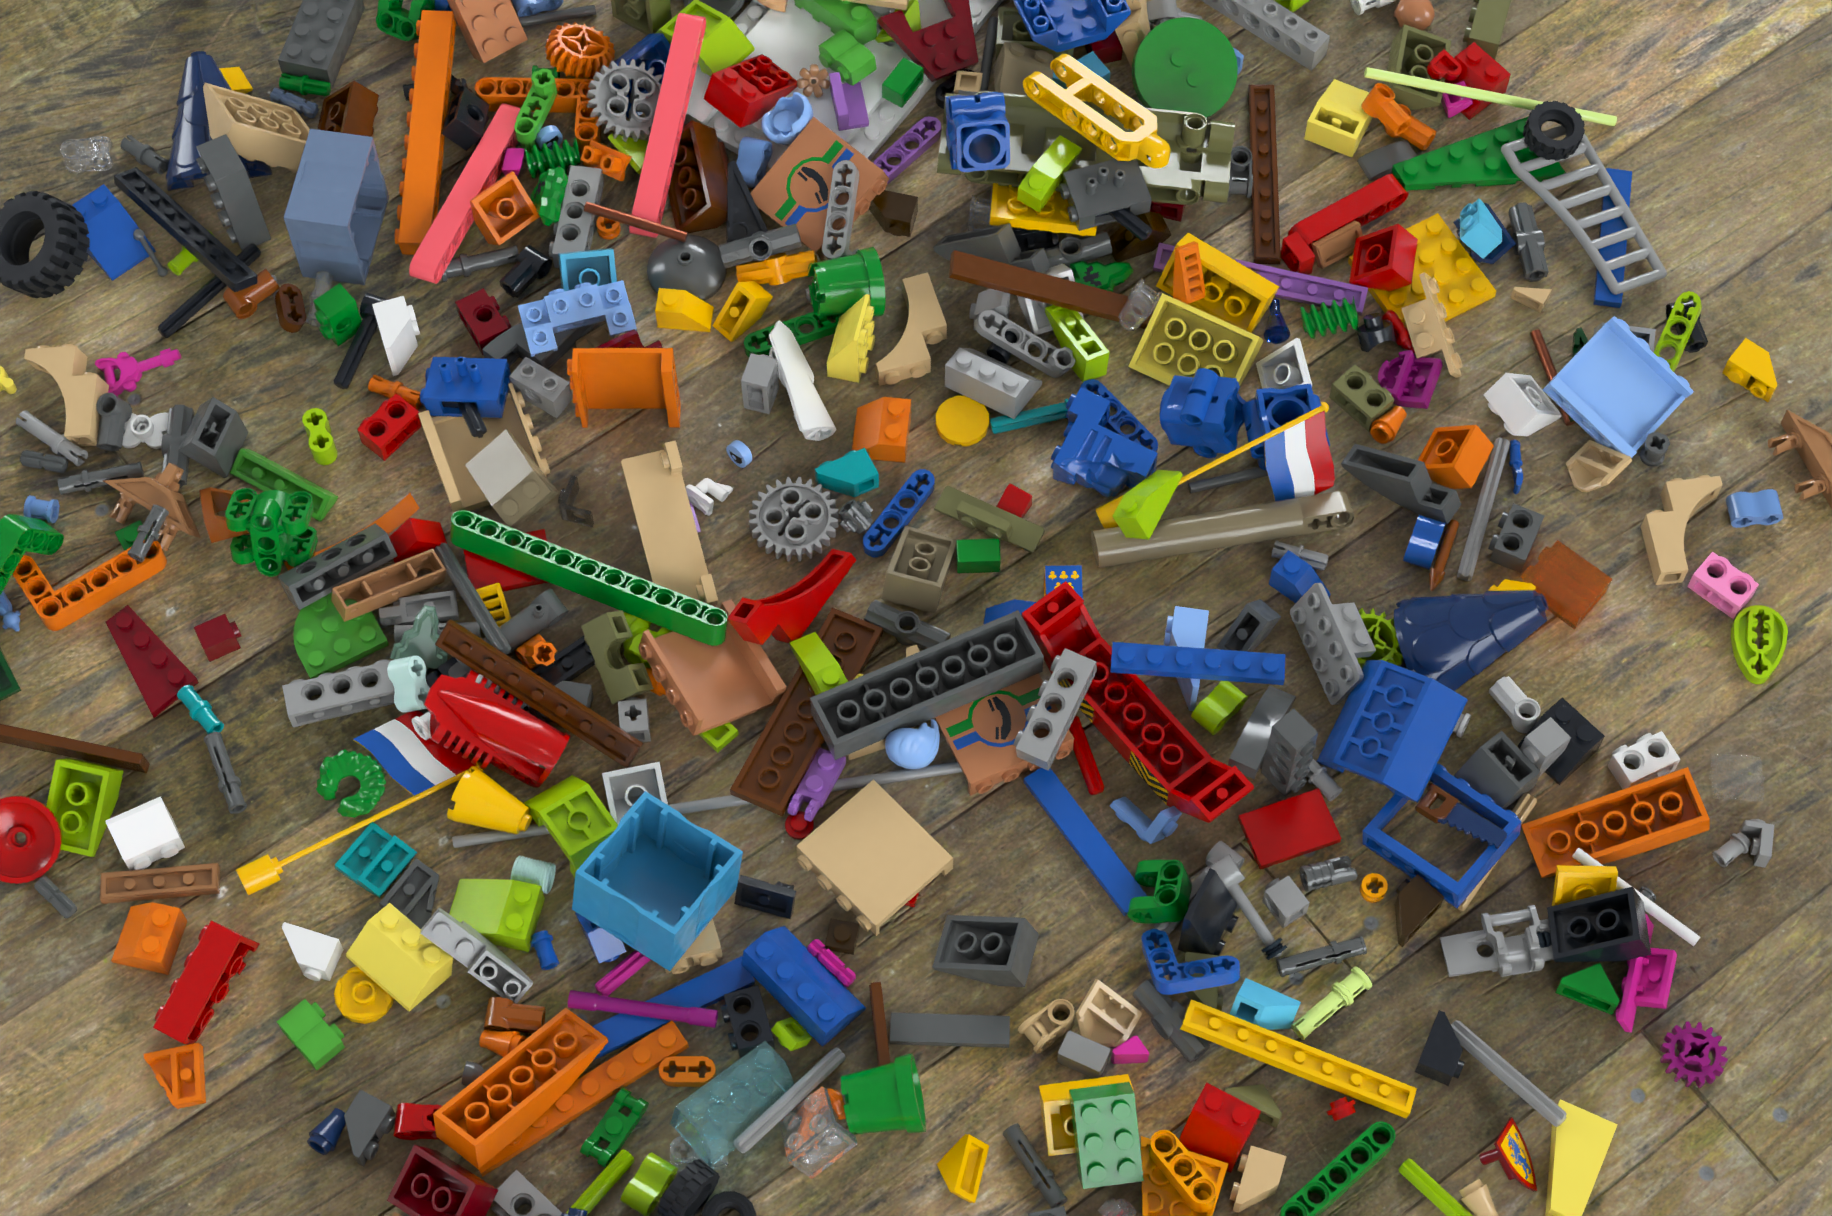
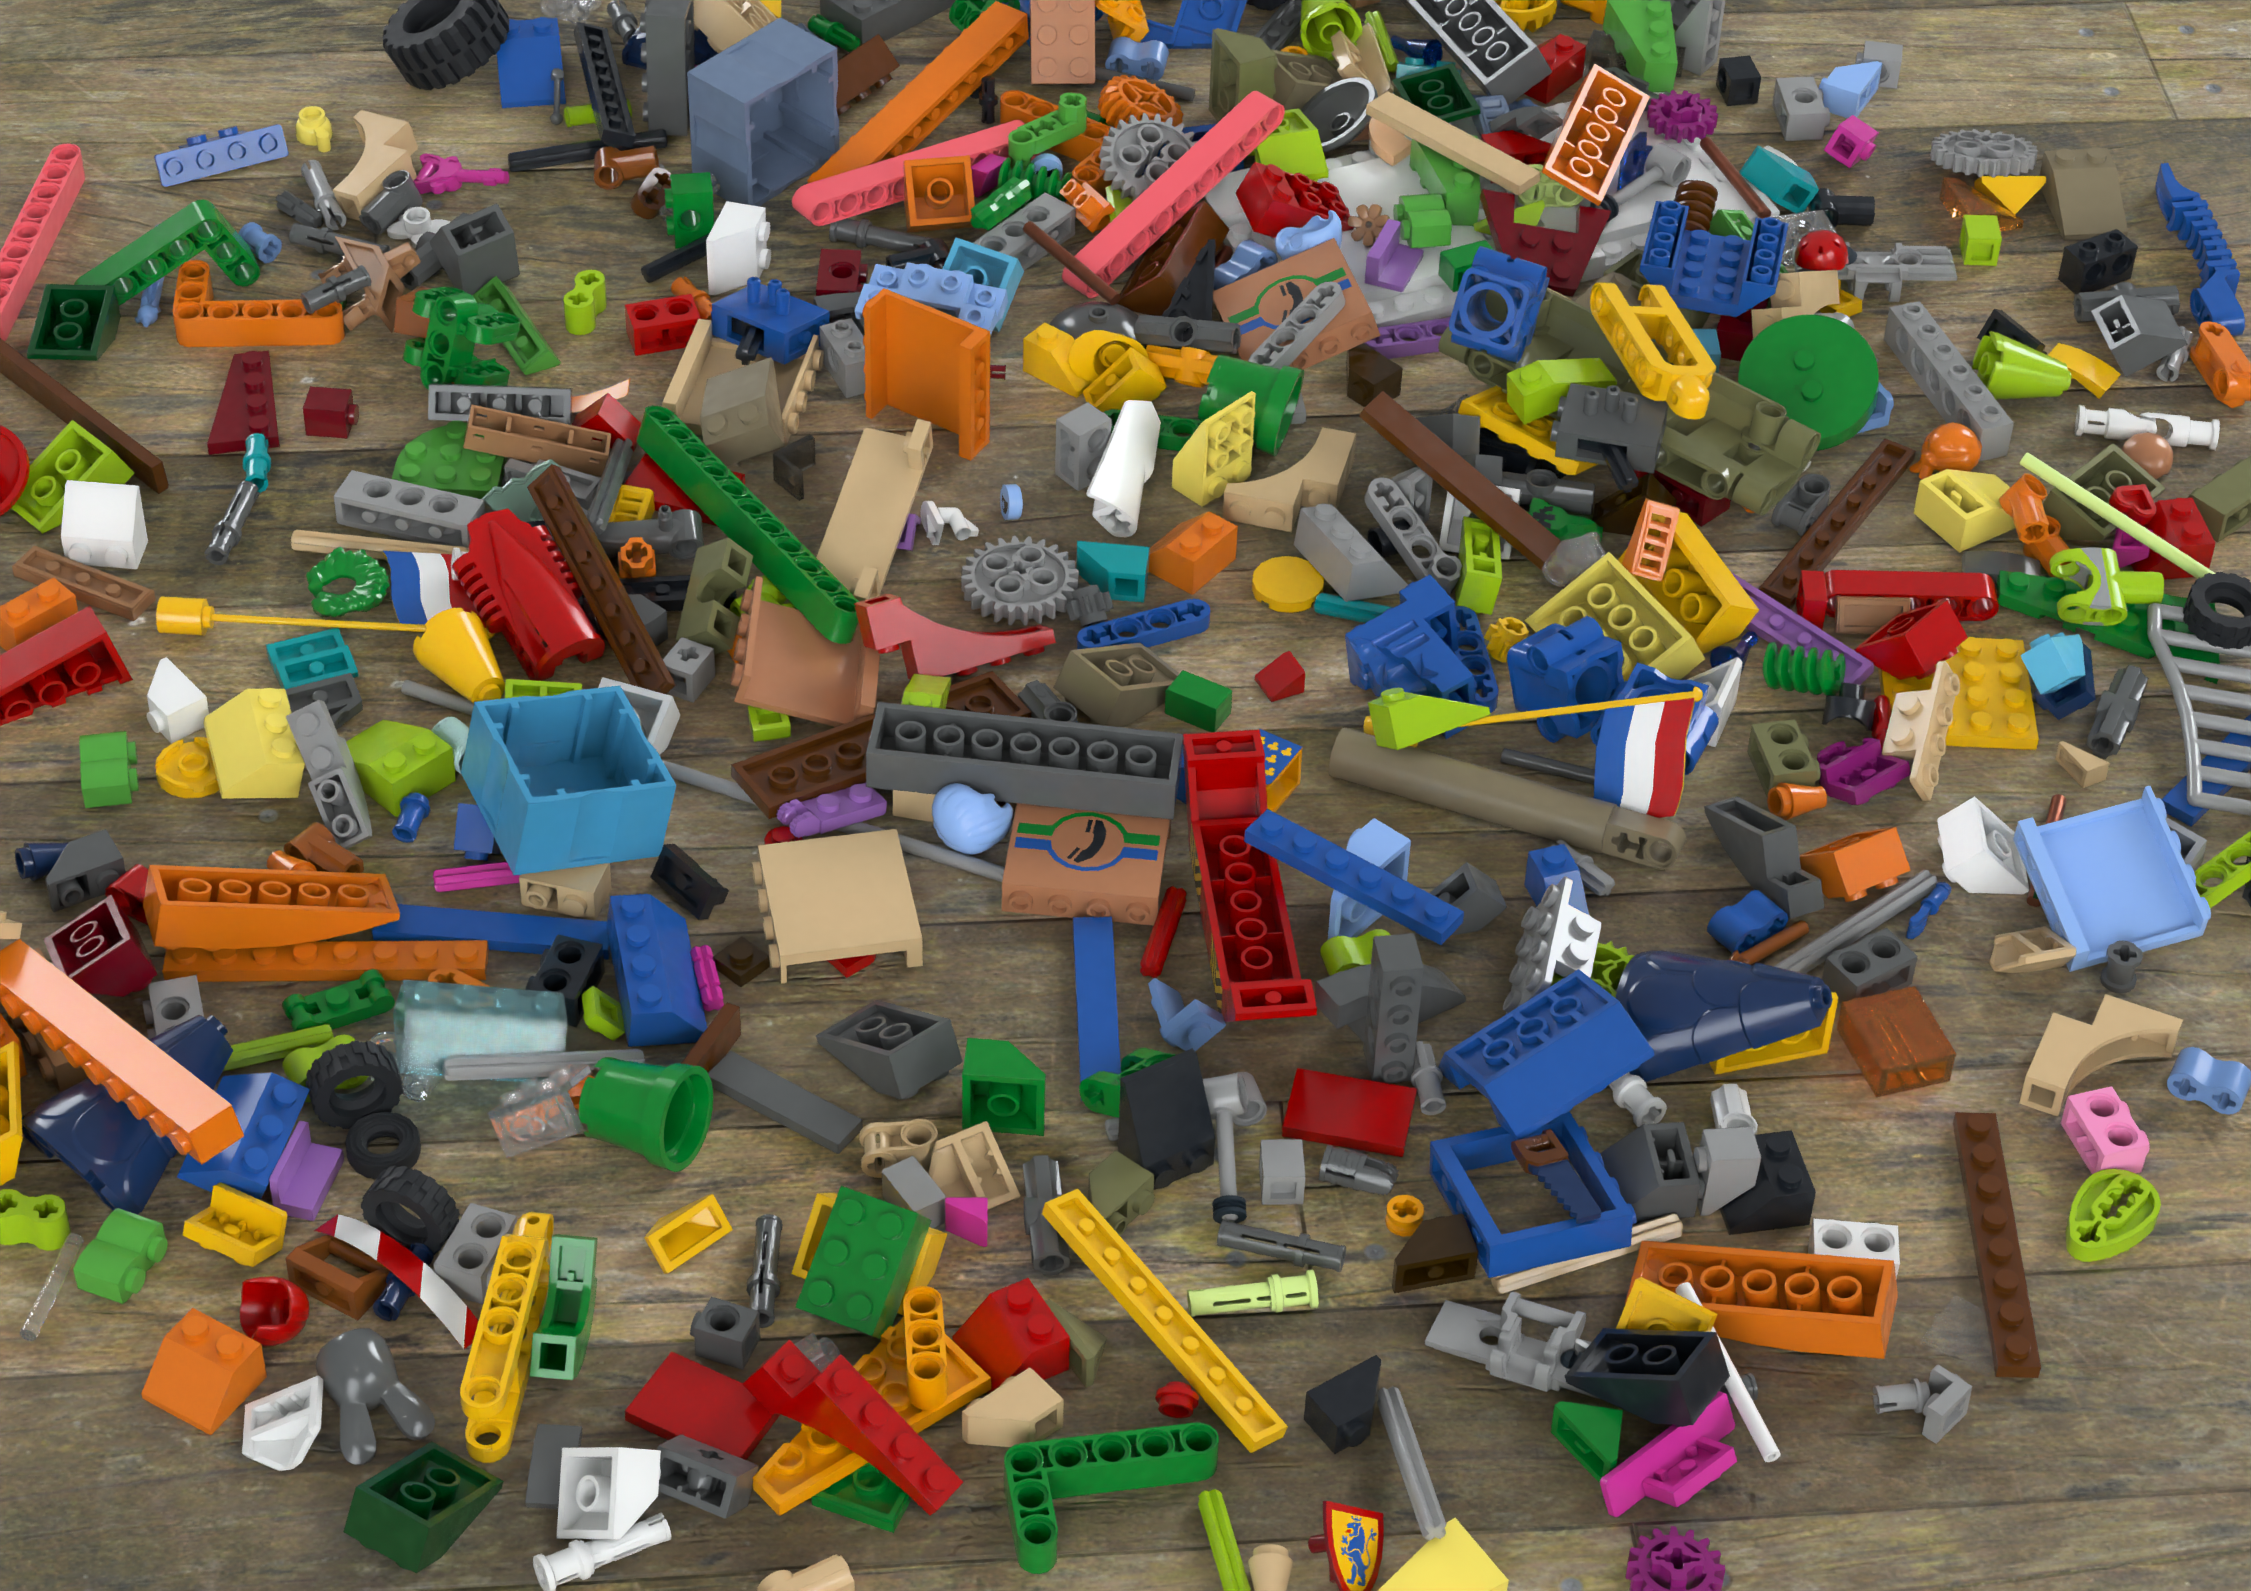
camera: 30 degrees right, 20 degrees down
(335, 738) = (326, 542): none -> tan axle
(409, 683) = (473, 505): light aqua axle -> none
(465, 119) = (968, 112): black brick -> none
(607, 233) = (1044, 267): orange bush -> none
(690, 1015) = (508, 941): magenta piece -> none
(715, 292) = (1097, 351): none -> yellow piece
(989, 519) = (1240, 675): olive bracket -> none
(1044, 750) = (1153, 849): light grey brick -> none
(1085, 946) = (1002, 1089): none -> green slope
(1134, 393) = (1503, 636): none -> yellow gear
(1224, 968) = (1082, 1154): blue beam -> none
(1264, 1006) = (1165, 1250): medium azure slope -> none
(1297, 76) = (1948, 447): none -> orange hat
(1470, 148) = (2103, 586): none -> lime connector
(1710, 702) = (1996, 1245): none -> reddish brown plate

